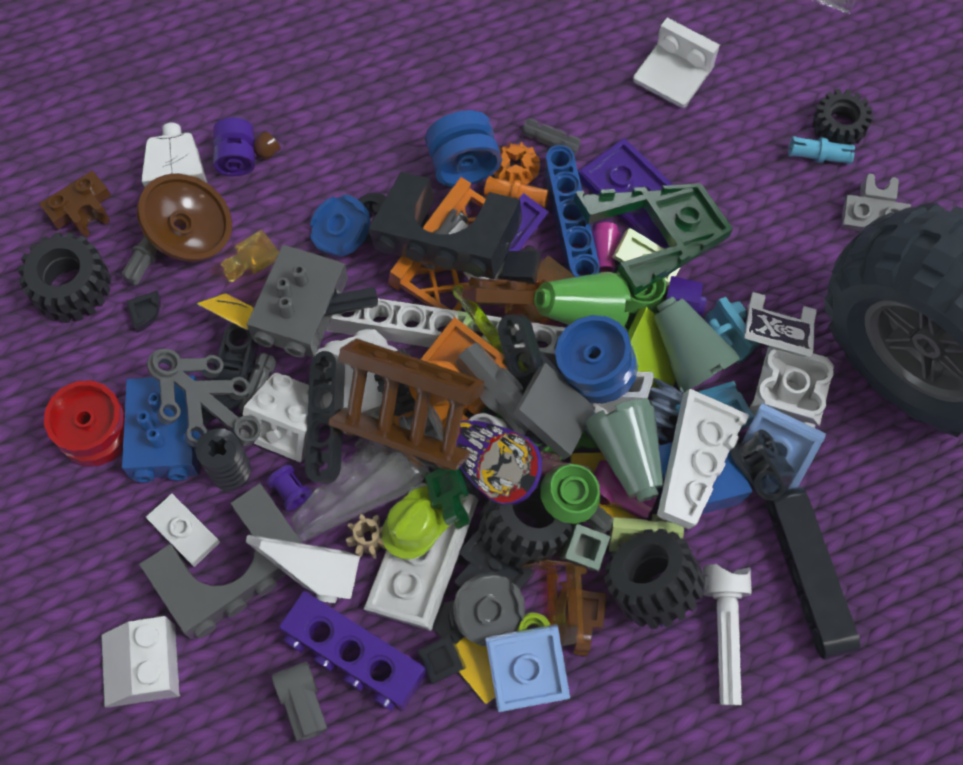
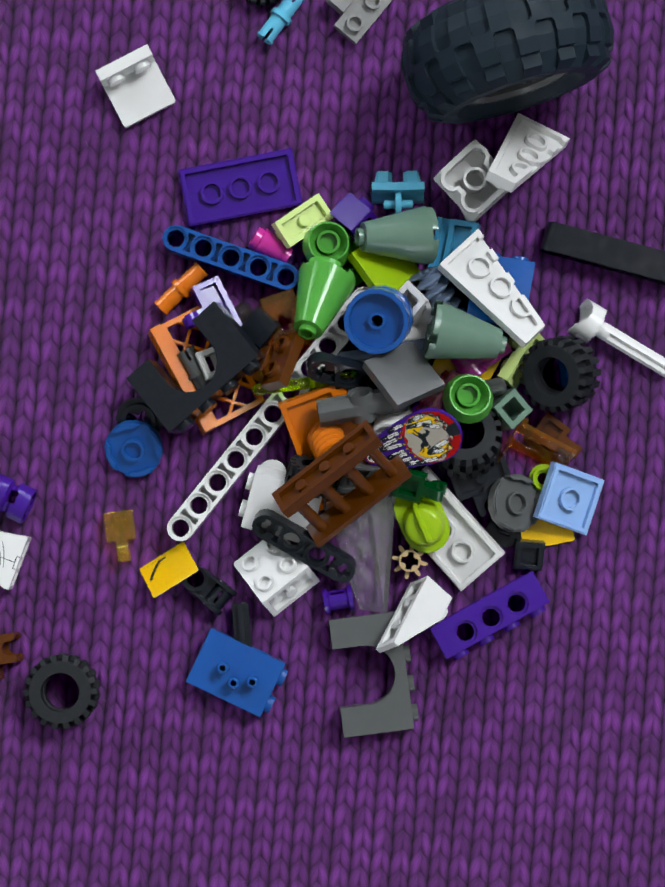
camera: 60 degrees left, 20 degrees up
(86, 423) = (195, 741): red wheel -> none
(140, 662) = (413, 771): white slope -> none
(142, 256) = (71, 618): dark grey axle -> none
(144, 310) = (120, 640): black tile -> none
(183, 530) = (326, 694): white plate -> none
(193, 207) = (65, 556): reddish brown dish -> none
(199, 394) = (237, 633): dark grey plant -> none
(223, 459) = (289, 648): black piece -> none
(258, 377) = (236, 581): dark grey axle -> none
(266, 145) = (20, 471): reddish brown hinge -> none
(297, 692) = (496, 668): dark grey piece -> none
(301, 300) = (199, 516): dark grey piece -> none
(463, 147) = (122, 313): blue wheel -> none
(529, 163) = (163, 279): orange gear -> none
(550, 135) = (142, 229): dark grey axle -> none
(681, 213) = (286, 172): dark green wing -> none
(764, 462) = (524, 242): black piece -> none
(778, 329) = (422, 161): flag -> none
(793, 438) = (512, 220): light blue tile -> none
(853, 414) = (524, 153): none -> white wing

